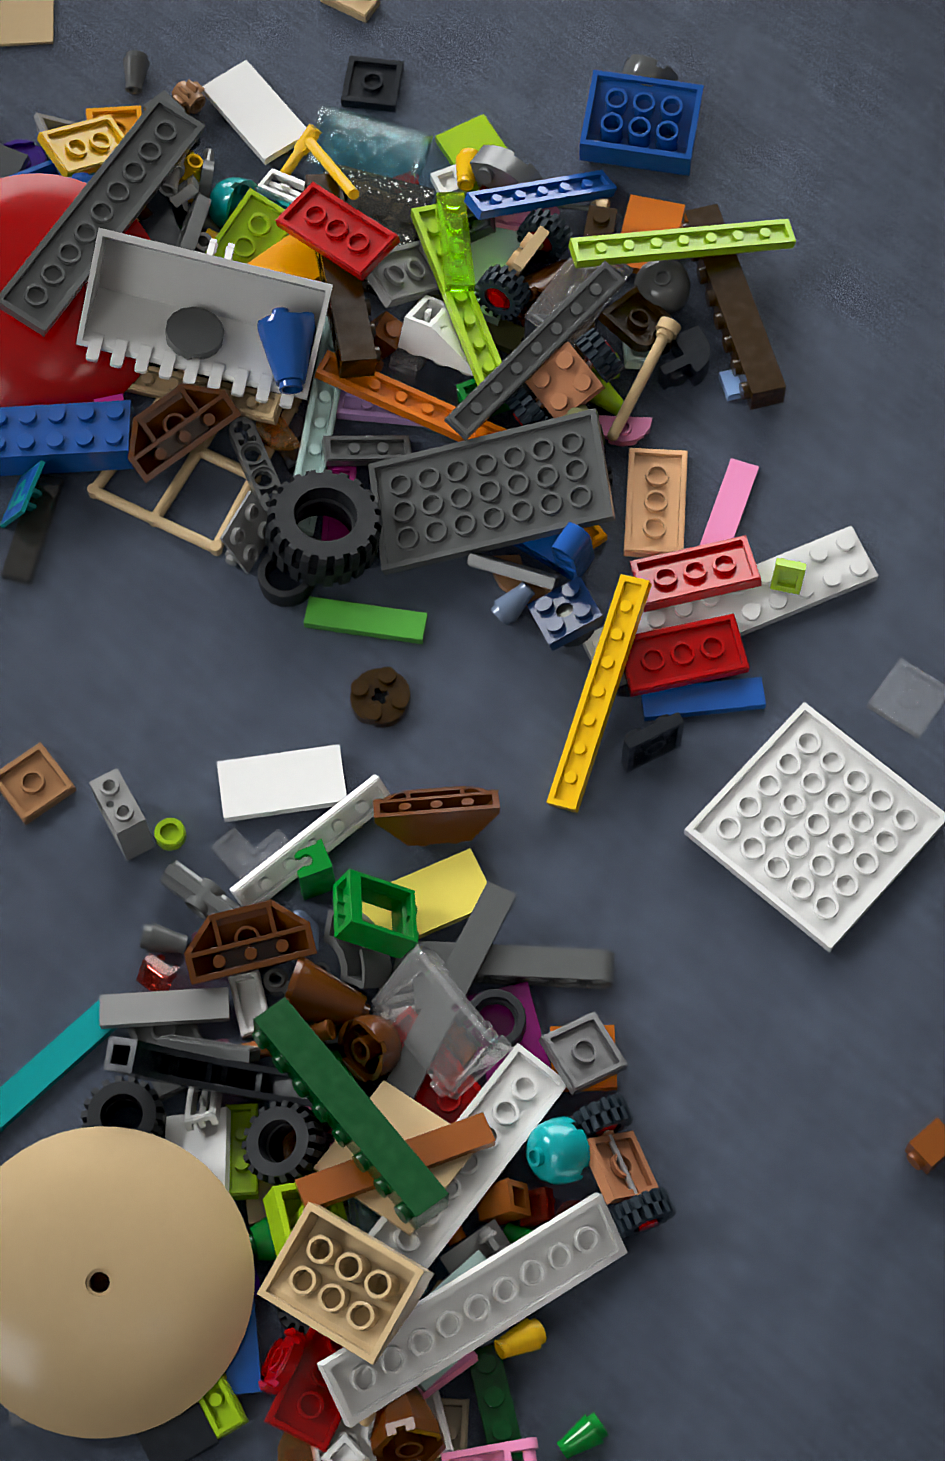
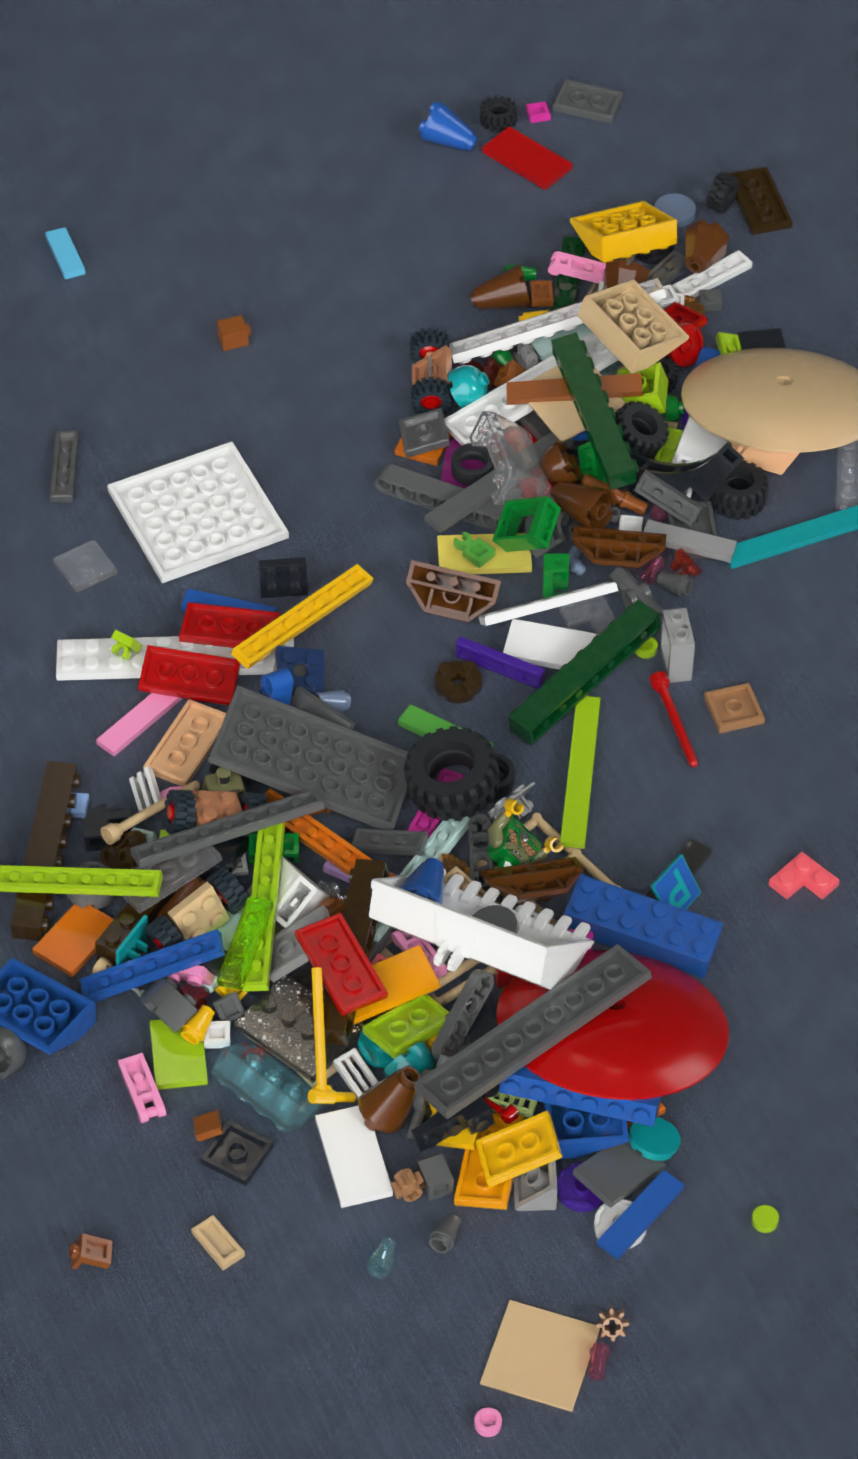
camera: 160 degrees left, 15 degrees down
(133, 778) = (660, 683): none -> red piece
(186, 29) = (382, 1258): none -> clear light blue cone
(186, 623) = (580, 773): none -> lime tile
(219, 479) = (513, 843): none -> torso
(223, 742) = (584, 672): none -> dark green brick
(238, 152) = (389, 1101): none -> reddish brown cone
(337, 732) = (500, 662): none -> dark purple tile
(411, 91) = (208, 1125): none -> dark orange tile
(431, 880) = (474, 551): none -> bright green plate
(496, 107) = (141, 1087): none -> bright pink plate
(531, 1397) = (541, 293): none -> dark orange bracket
(577, 216) = (133, 943): none -> teal piece
(584, 1375) = (502, 291): none -> reddish brown cone
(665, 418) = (140, 790): none -> white tile

